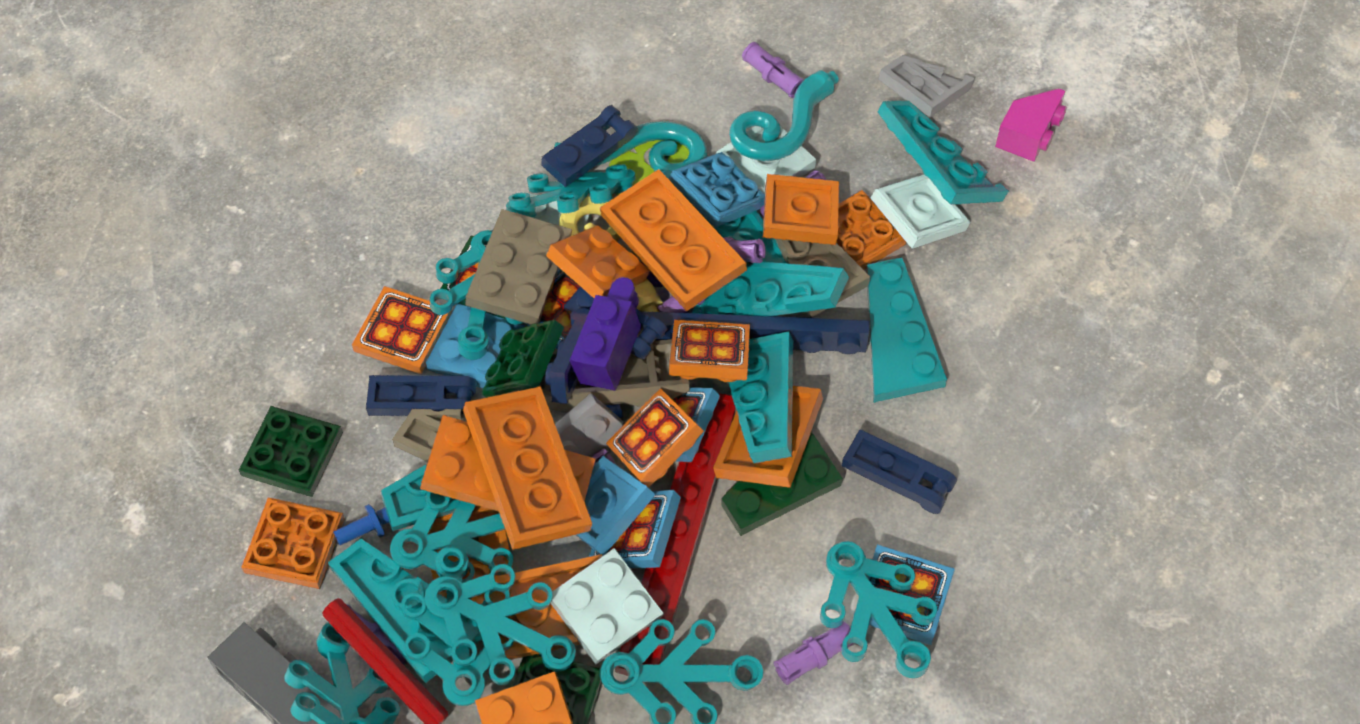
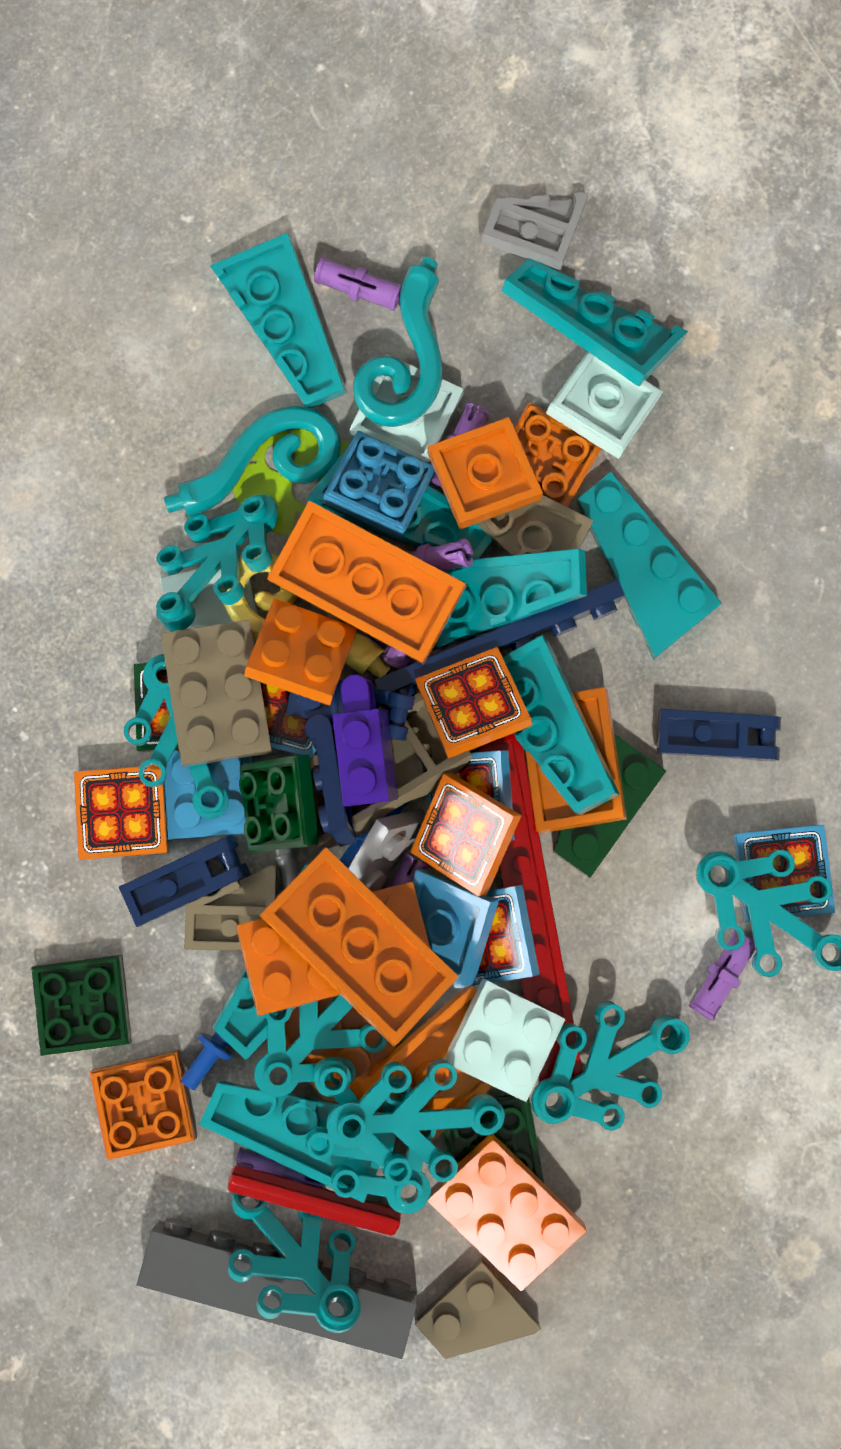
camera: 25 degrees left, 25 degrees up
(588, 146) = (207, 494): dark blue plate -> none
(708, 69) = (279, 306): none -> teal wing
(1029, 124) = (676, 232): dark pink slope -> none

